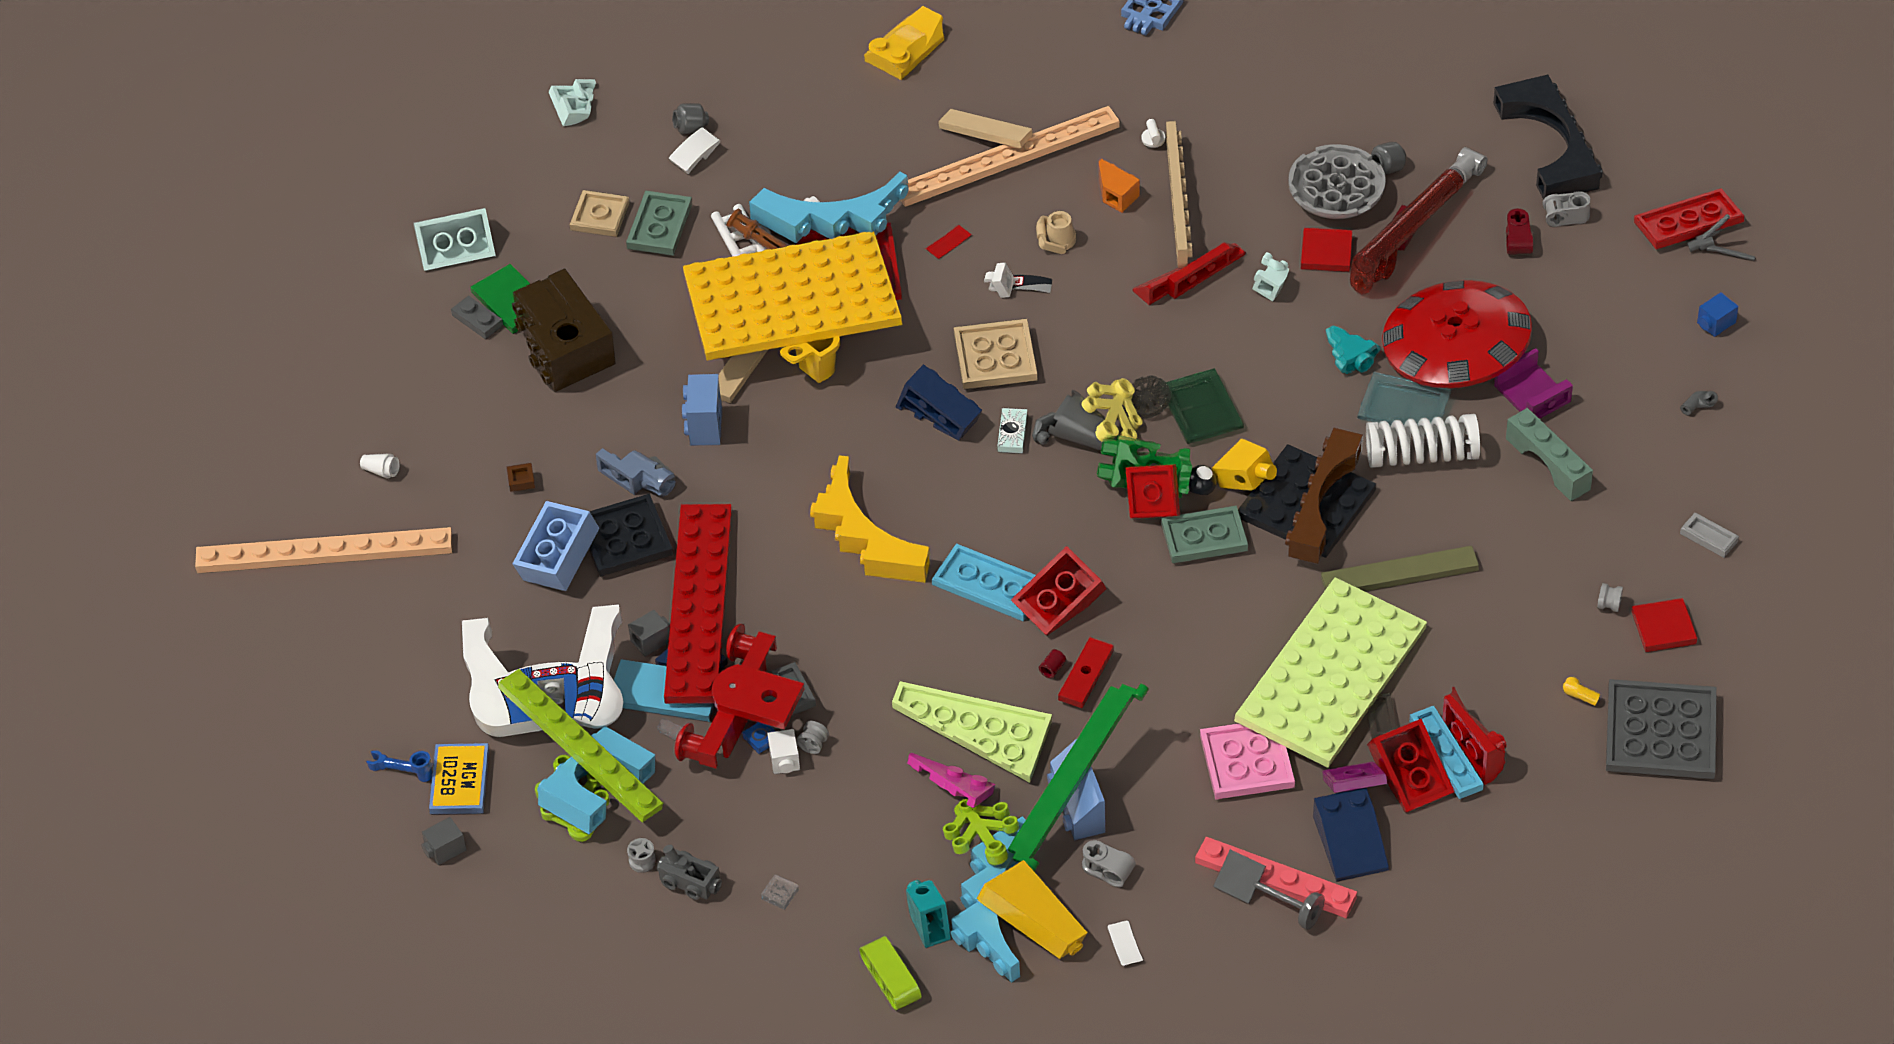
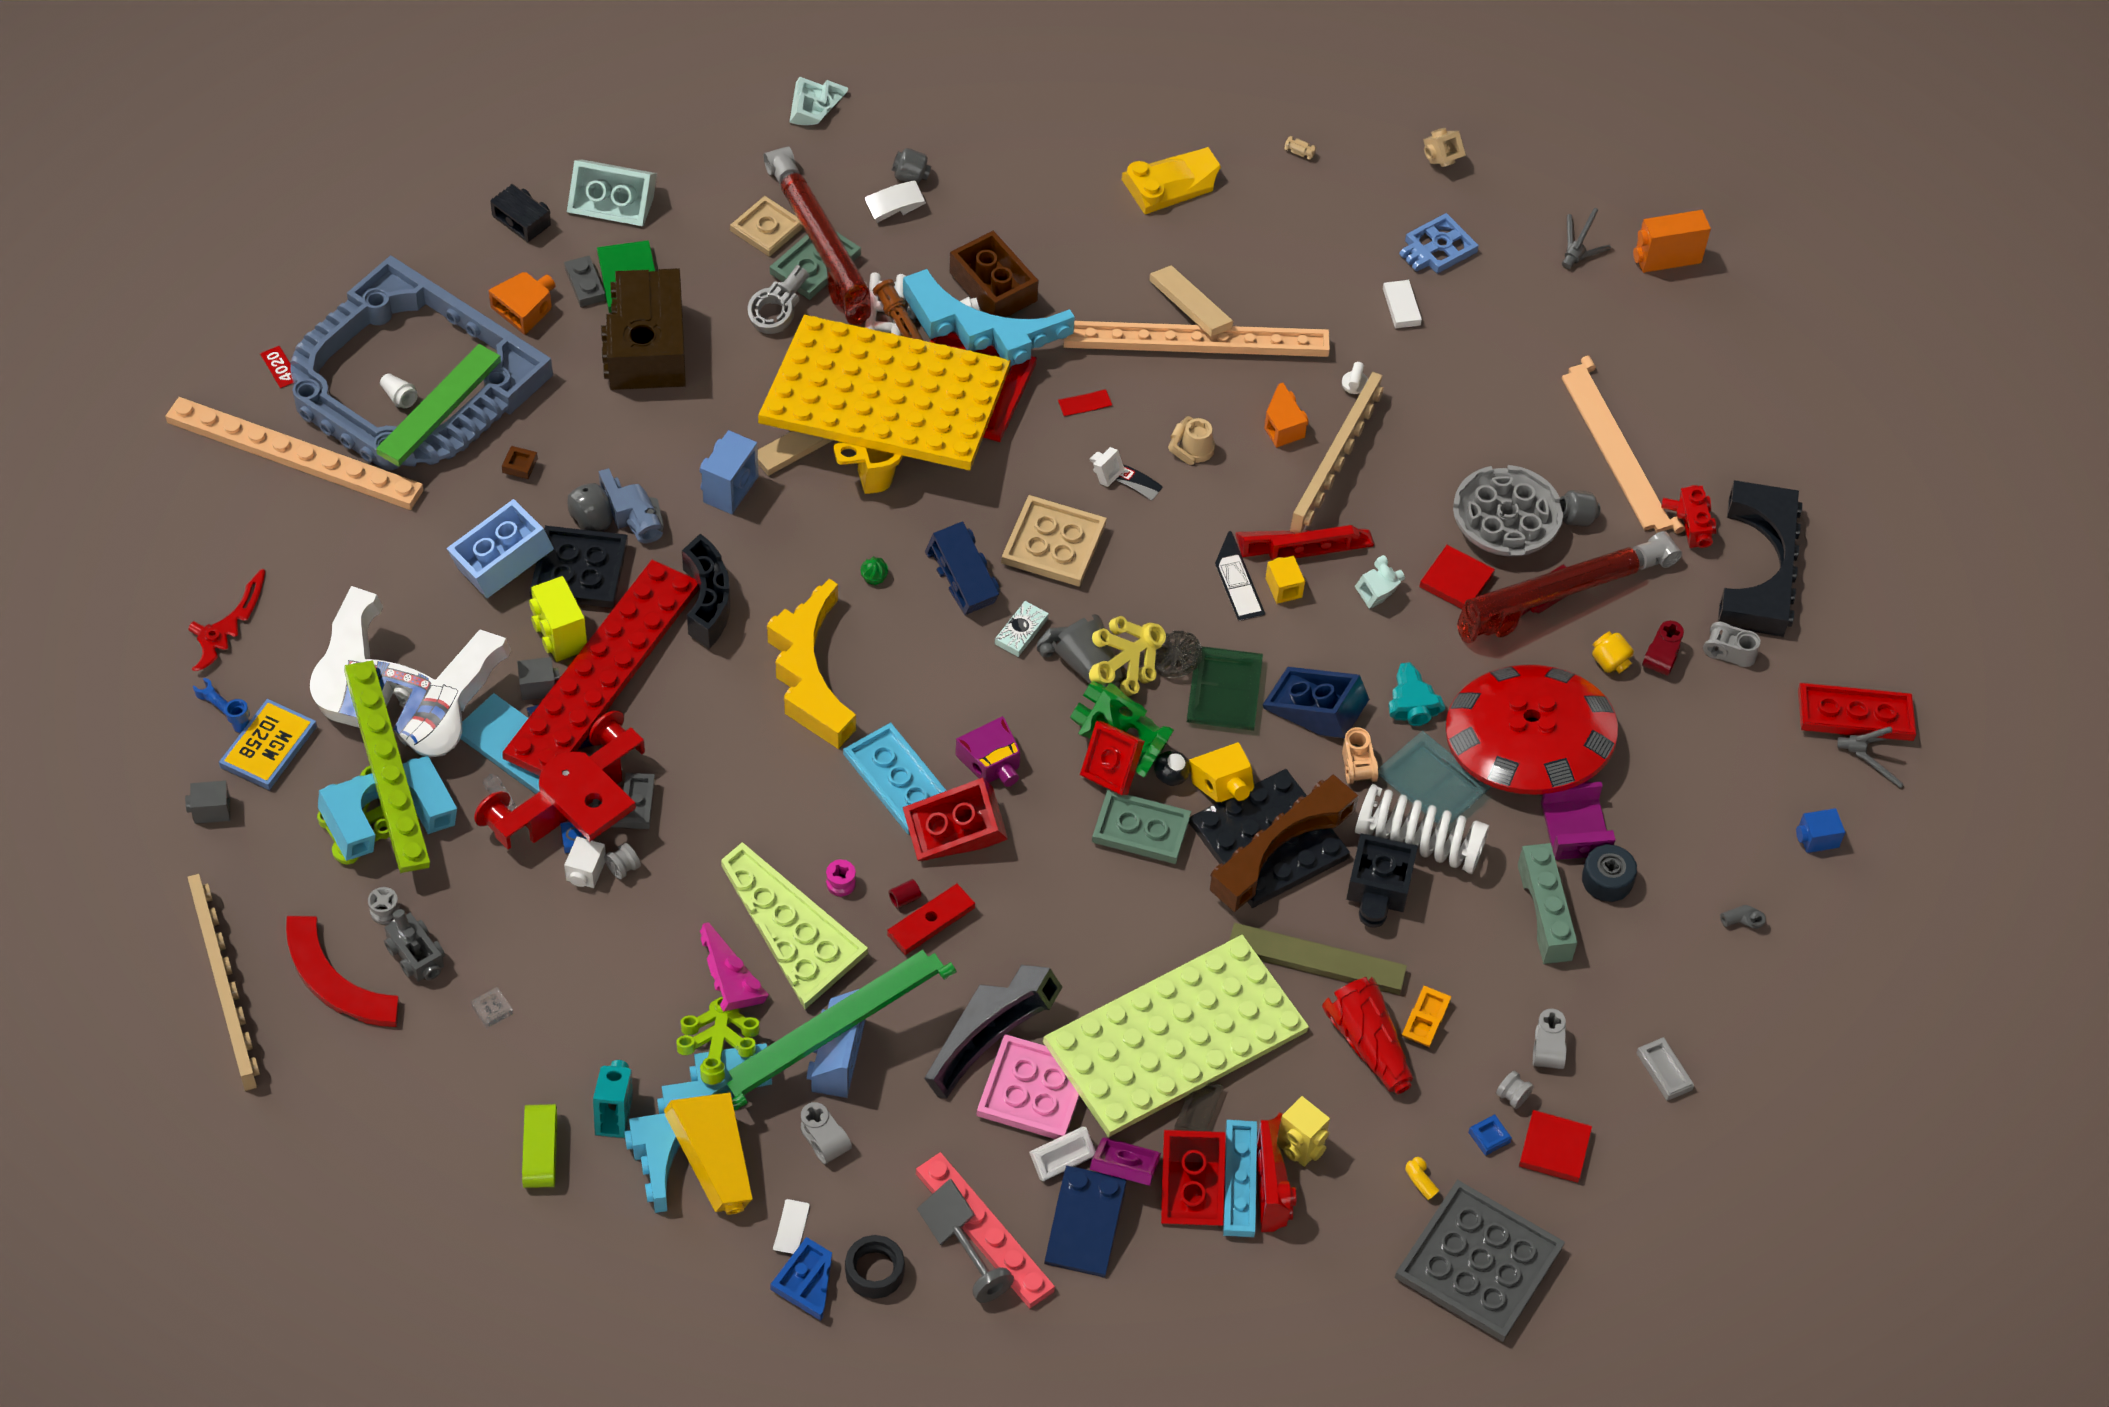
camera: 20 degrees right, 5 degrees up
(263, 489) = (278, 365): none -> red sticker
(327, 385) = (396, 289): none -> sand blue arch
(356, 716) = (215, 635): none -> red piece
(388, 285) = (520, 212): none -> black brick
(429, 458) = (438, 405): none -> bright green tile
(437, 352) = (522, 300): none -> orange torso
(543, 963) = (227, 991): none -> tan plate
(604, 484) = (590, 507): none -> dark grey helmet
(634, 933) = (330, 985): none -> red tile
(640, 578) = (558, 619): none -> neon yellow brick
(652, 260) = (781, 294): none -> light grey pin
(699, 226) = (844, 280): none -> clear red piece
(748, 502) = (712, 608): none -> black brick
(815, 171) = (994, 275): none -> reddish brown brick
(866, 437) = (874, 570): none -> green plate
(994, 674) = (839, 885): none -> dark pink wheel
(1051, 530) = (990, 752): none -> magenta torso
(1151, 64) = (1402, 304): none -> white tile
(1157, 324) = (1237, 581): none -> sticker
(1164, 973) = (805, 1278): none -> blue wing
(1182, 719) = (987, 1018): none -> black arch
(1196, 305) = (1285, 579): none -> yellow brick
(1211, 922) = (868, 1245): none -> black tyre
(1280, 383) = (1318, 700): none -> dark blue slope
(1301, 795) = (1066, 1150): none -> white tile
(1338, 410) = (1359, 761): none -> light nougat piece
(1387, 104) = (1616, 449): none -> light nougat piece
(1413, 489) = (1380, 877): none -> black brick
(1471, 599) = (1370, 1031): none -> red cone
(1478, 692) = (1303, 1132): none -> light yellow brick
(1480, 125) = (1694, 510): none -> red brick
(1481, 252) = (1612, 652): none -> yellow head
(1509, 575) = (1426, 1016): none -> light orange slope
(1581, 412) = (1609, 873): none -> black wheel
(1610, 639) = (1490, 1135): none -> blue tile
(1614, 551) = (1550, 1042): none -> light grey piece

